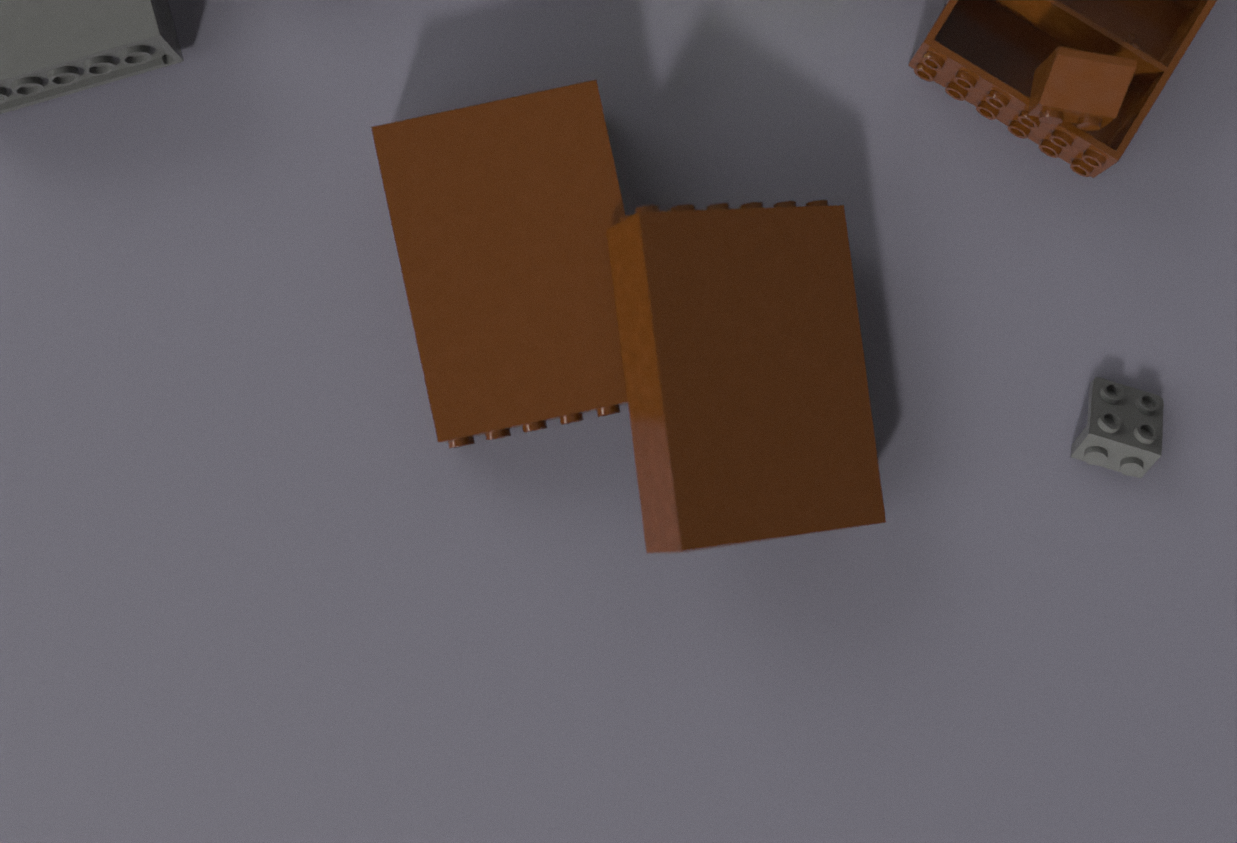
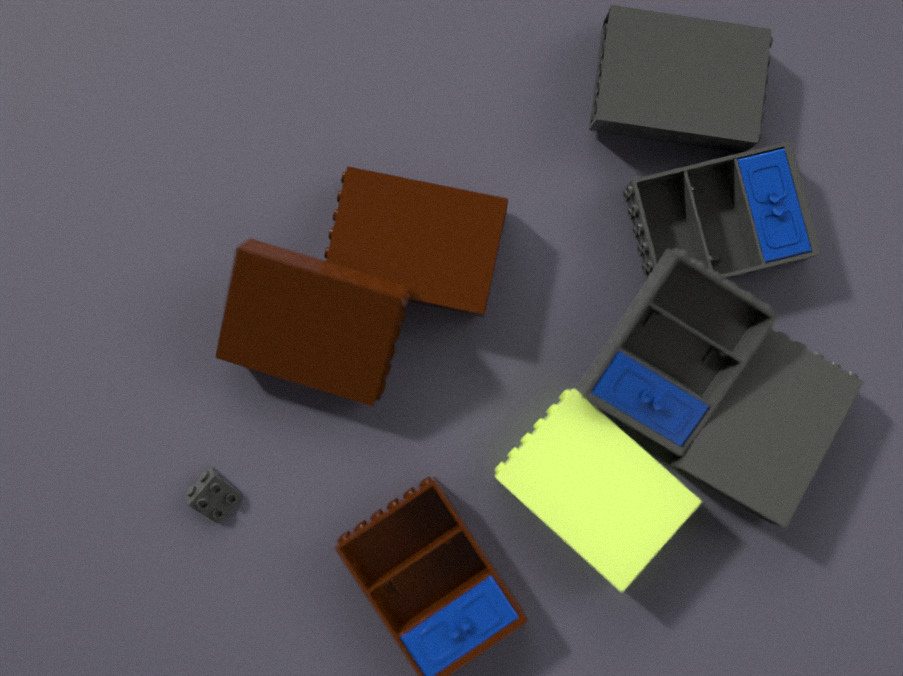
camera: 115 degrees right, 0 degrees up
(1080, 88) = (373, 540): reddish brown slope -> none

